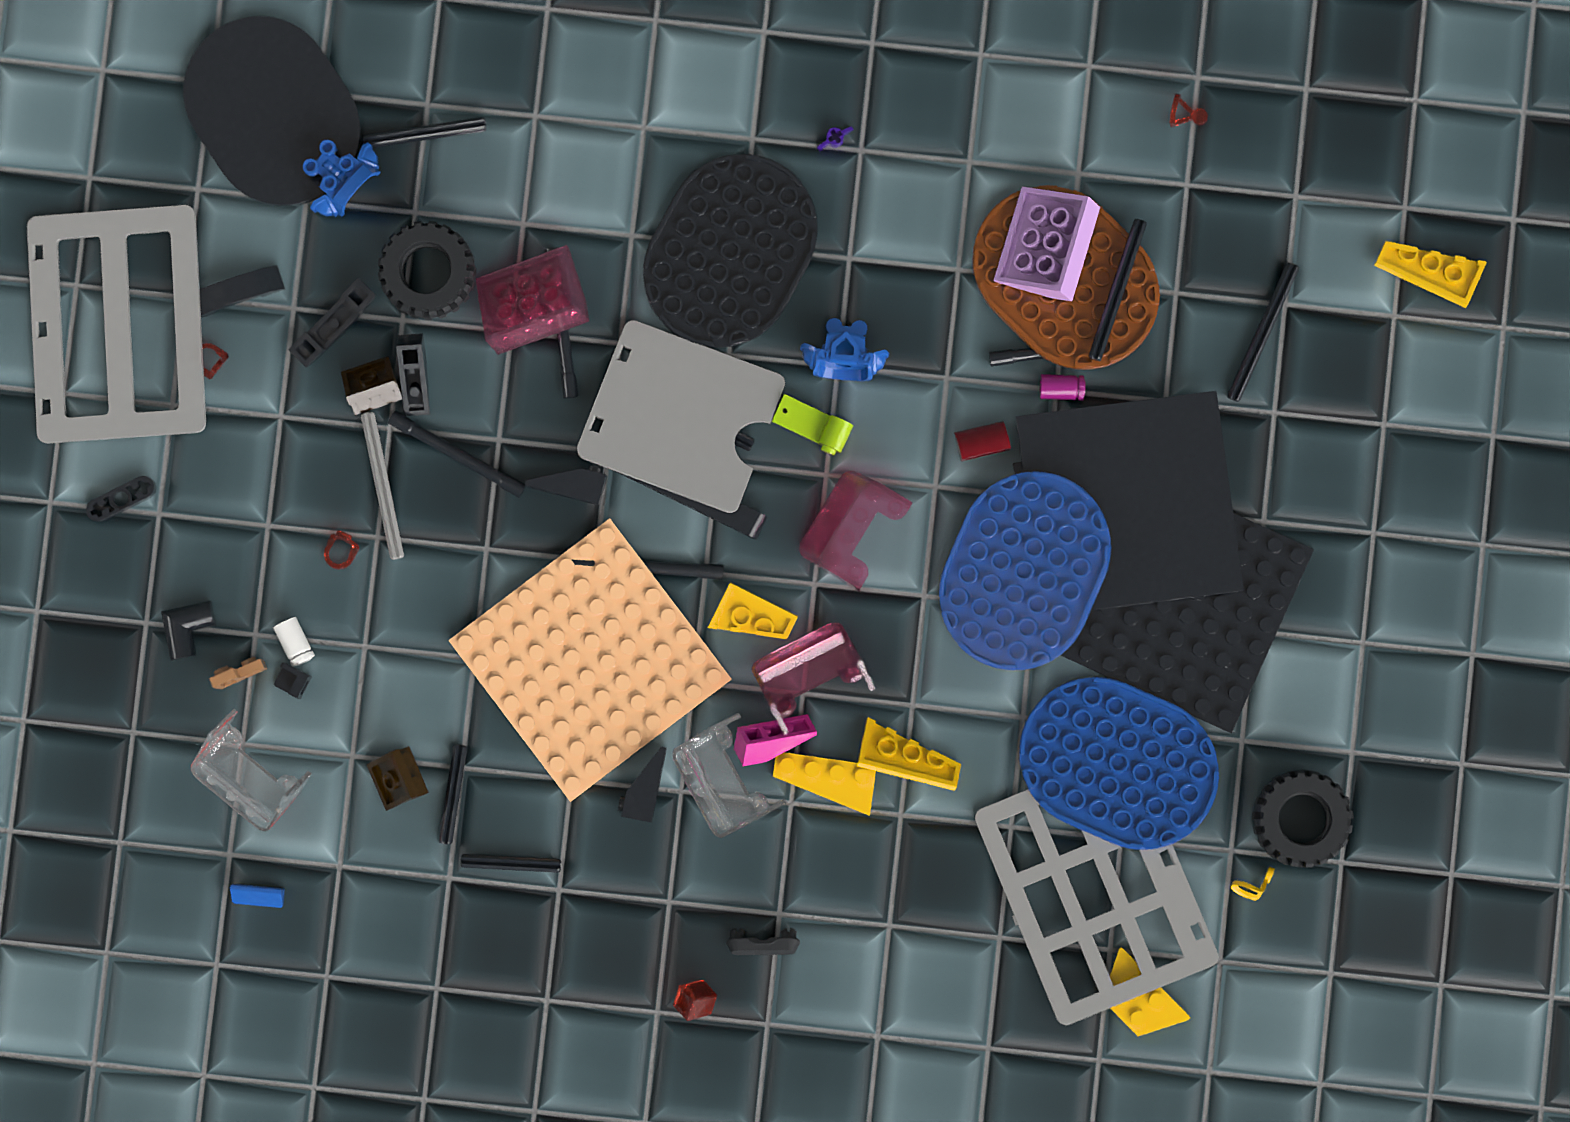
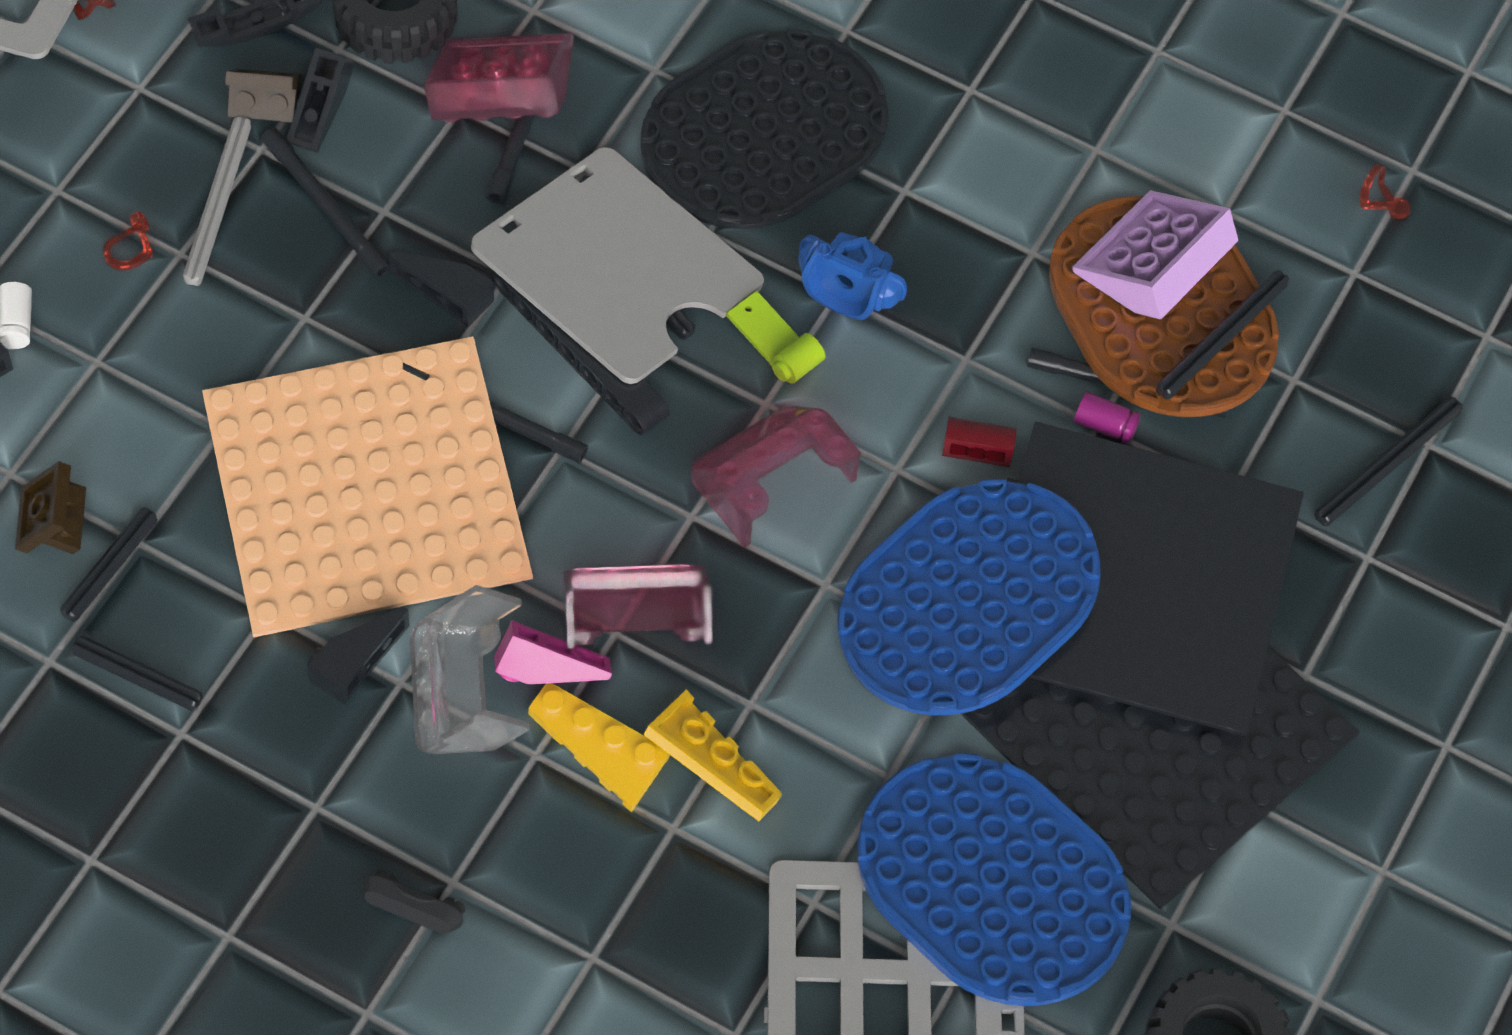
camera: 15 degrees right, 25 degrees down
(695, 1000) = (286, 936): clear red panel -> none
(751, 614) = (595, 513): yellow wing -> none
(835, 137) = (945, 62): dark purple piece -> none

